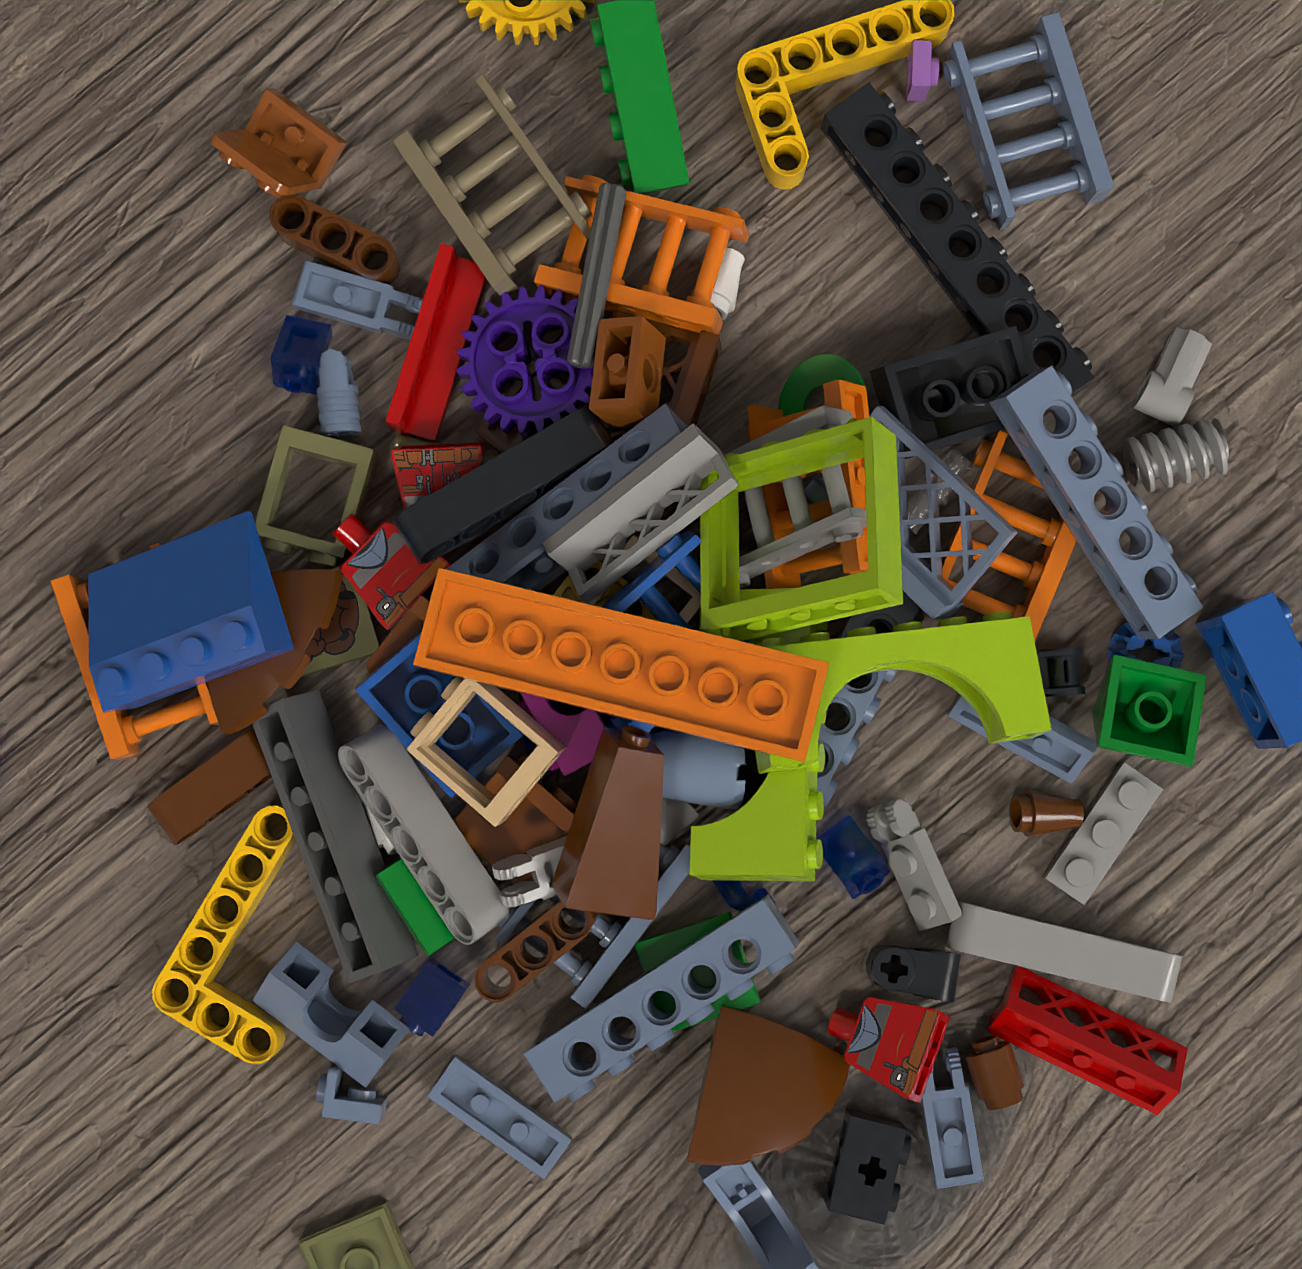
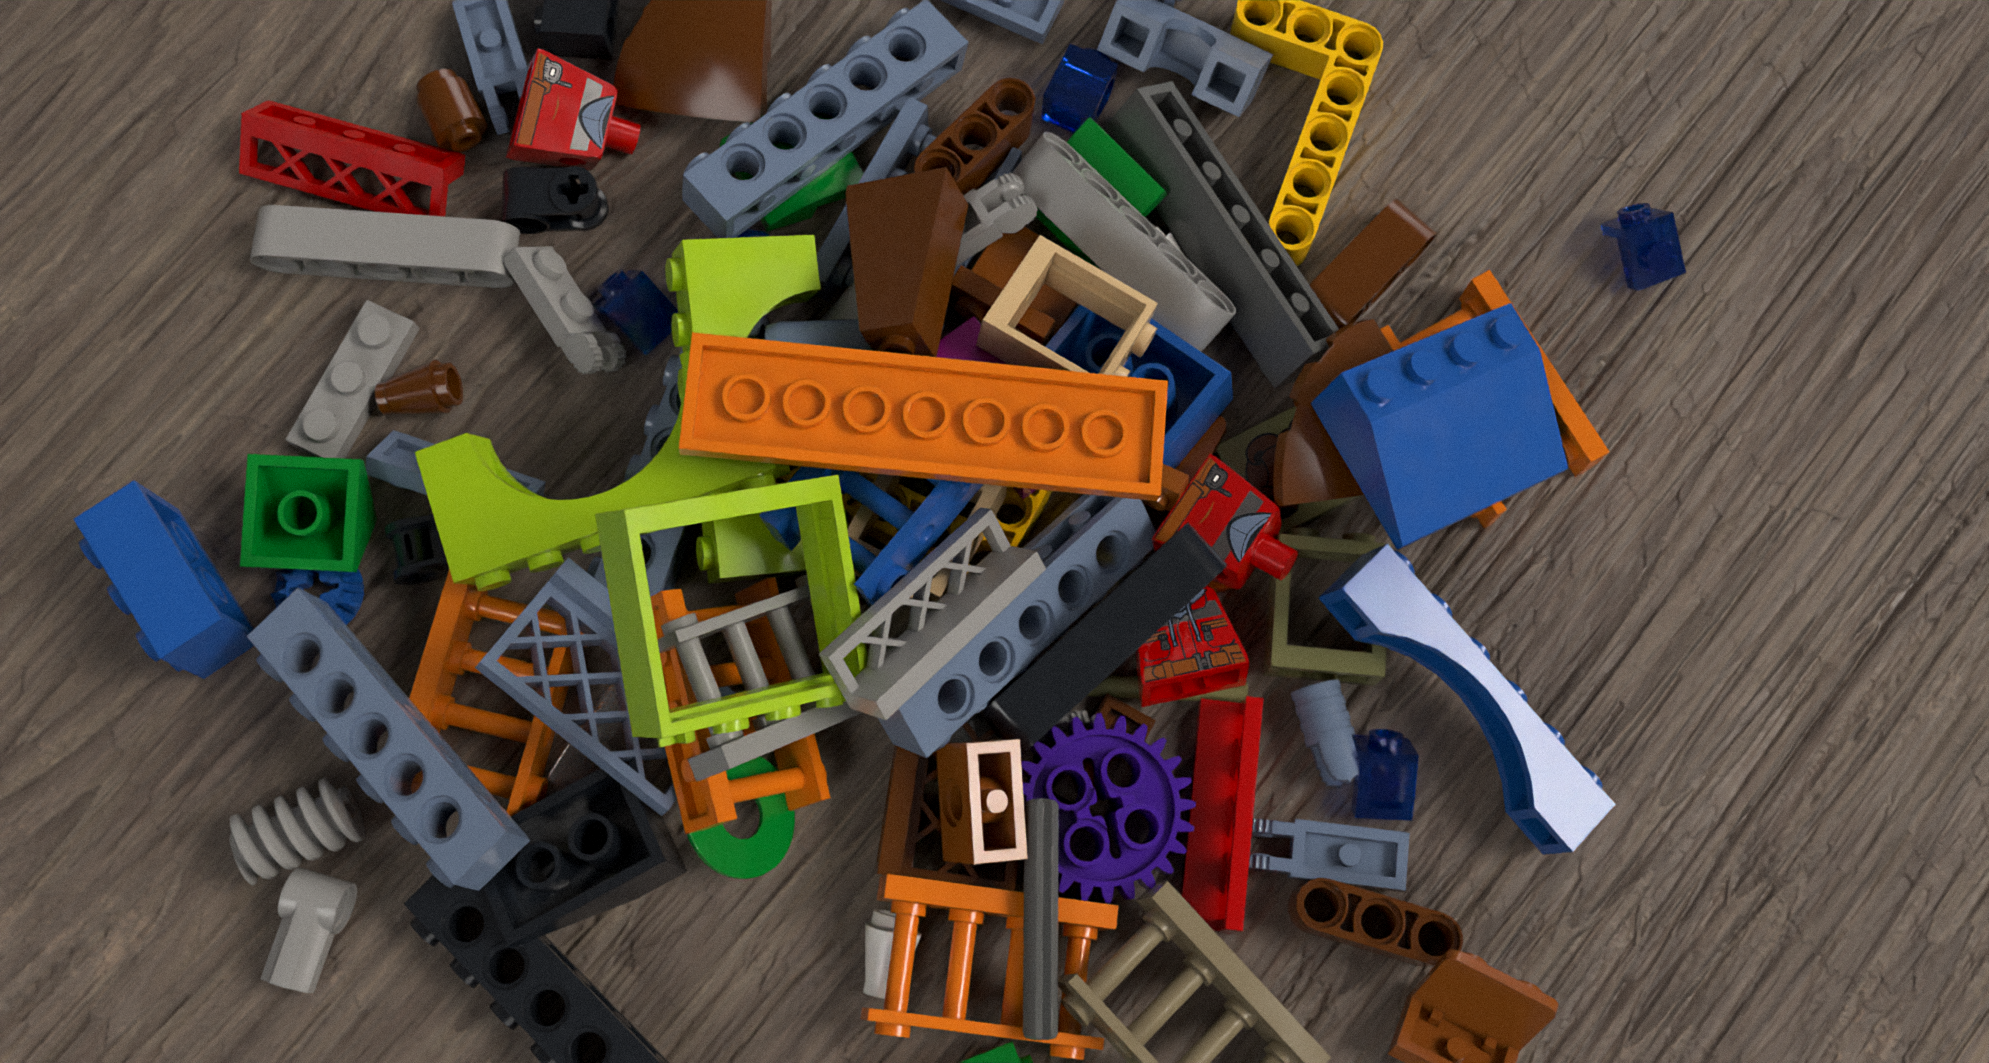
camera: 170 degrees right, 10 degrees down
(177, 322) = (1541, 781): none -> arch

